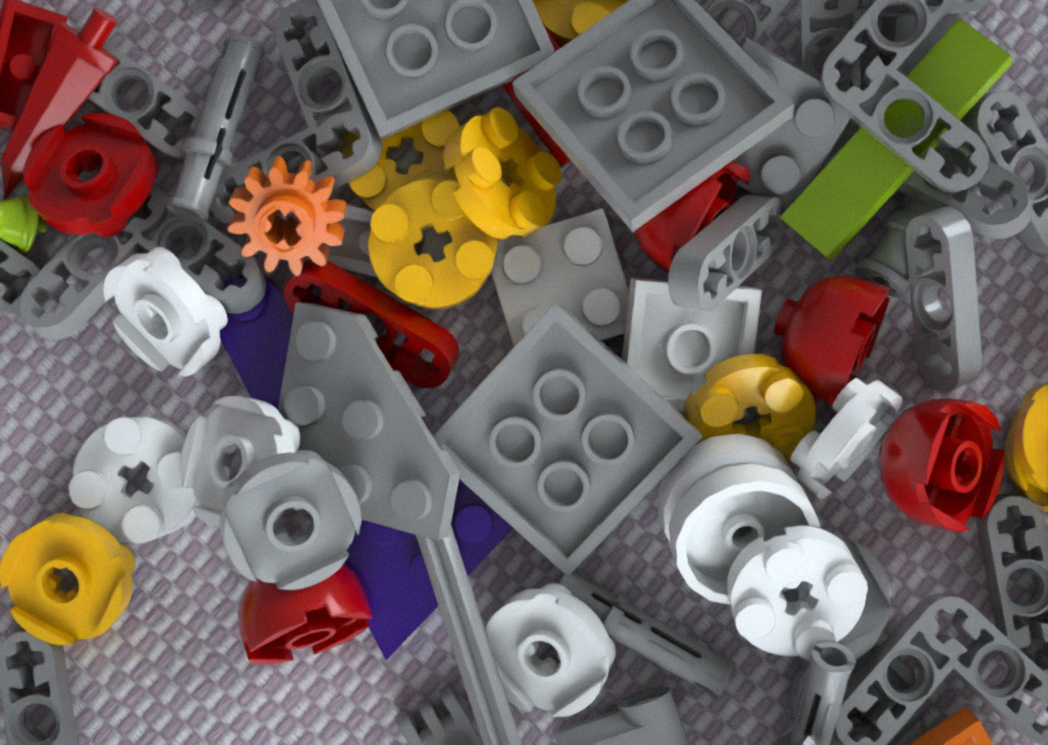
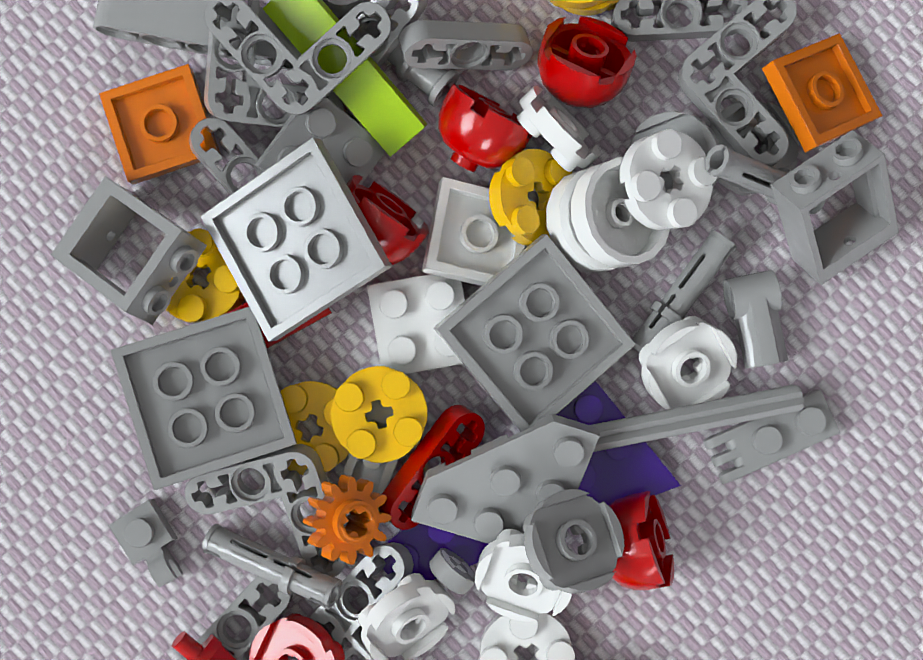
camera: 80 degrees left, 0 degrees up
(235, 366) = (452, 571): none -> light grey tile
(494, 148) = (315, 361): yellow plate -> none
(726, 252) = (412, 199): light grey beam -> none

